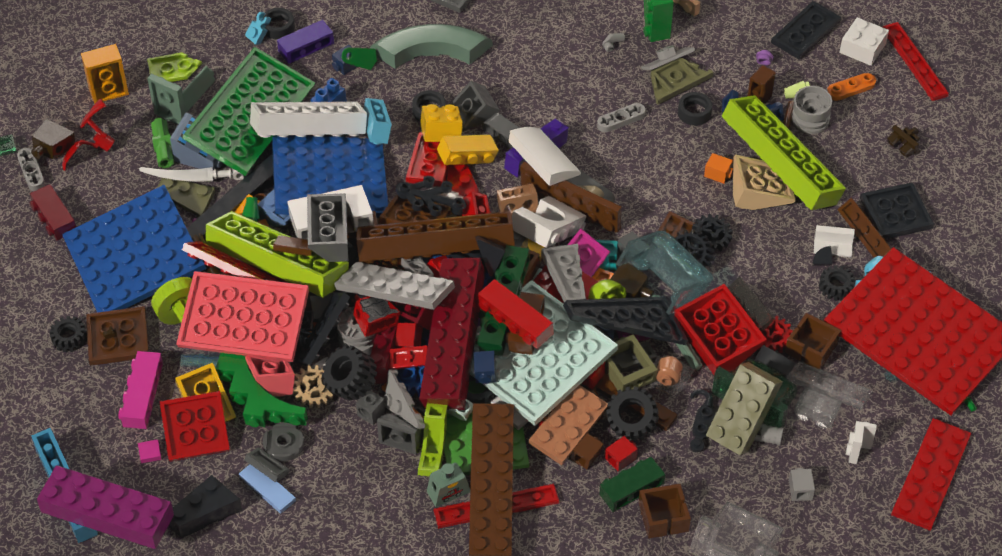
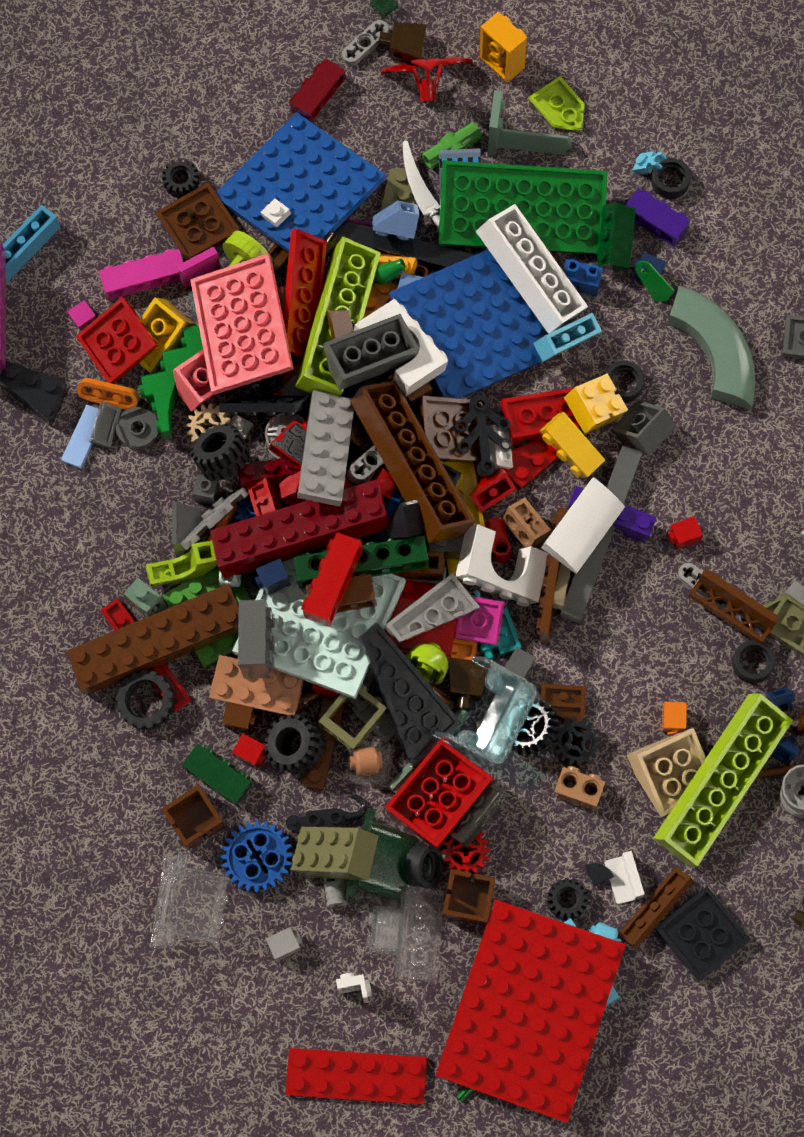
camera: 70 degrees right, 20 degrees up
(151, 268) = (275, 213): none -> white plate
(164, 342) = (199, 265): none -> dark pink tile
(210, 189) = (397, 219): none -> medium blue slope
(244, 446) = (99, 393): none -> orange plate
(308, 65) = (616, 237): none -> dark green brick
(538, 390) = (255, 639): none -> dark grey brick
(552, 497) = (126, 690): none -> black tyre
(573, 111) = (685, 533): none -> red brick
(646, 96) = (739, 601): none -> reddish brown fence
(713, 463) = (274, 847): none -> blue gear
(750, 244) = (577, 793): none -> medium nougat brick

